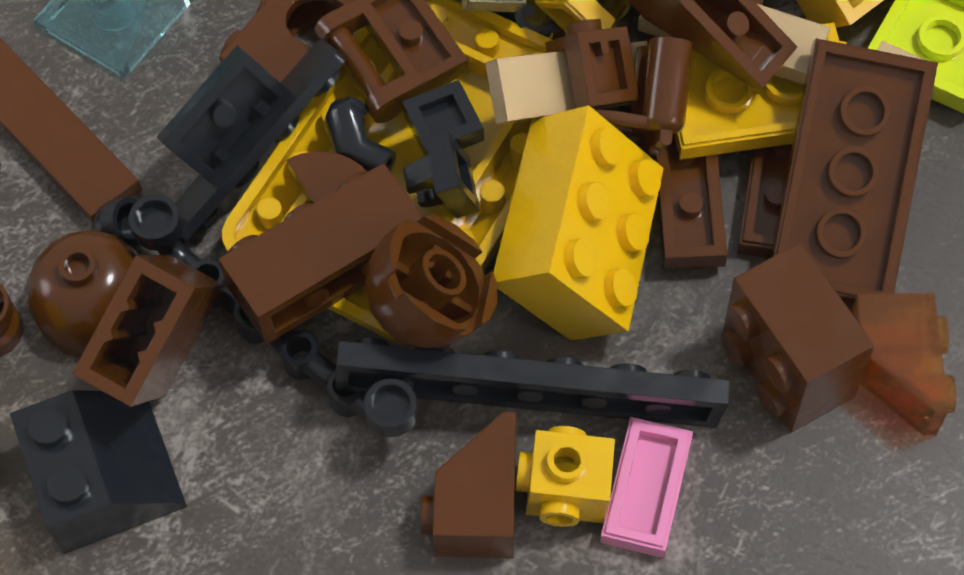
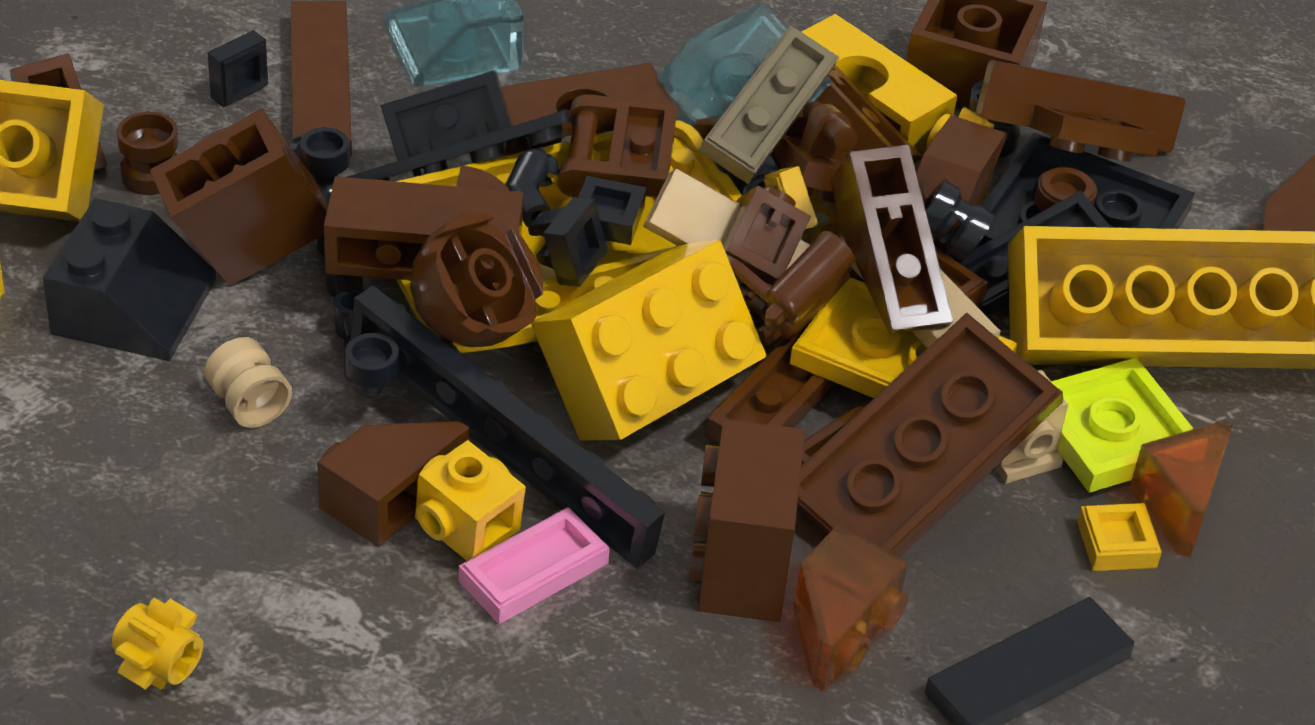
camera: 30 degrees right, 20 degrees down
(283, 488) = (248, 383): none -> tan wheel

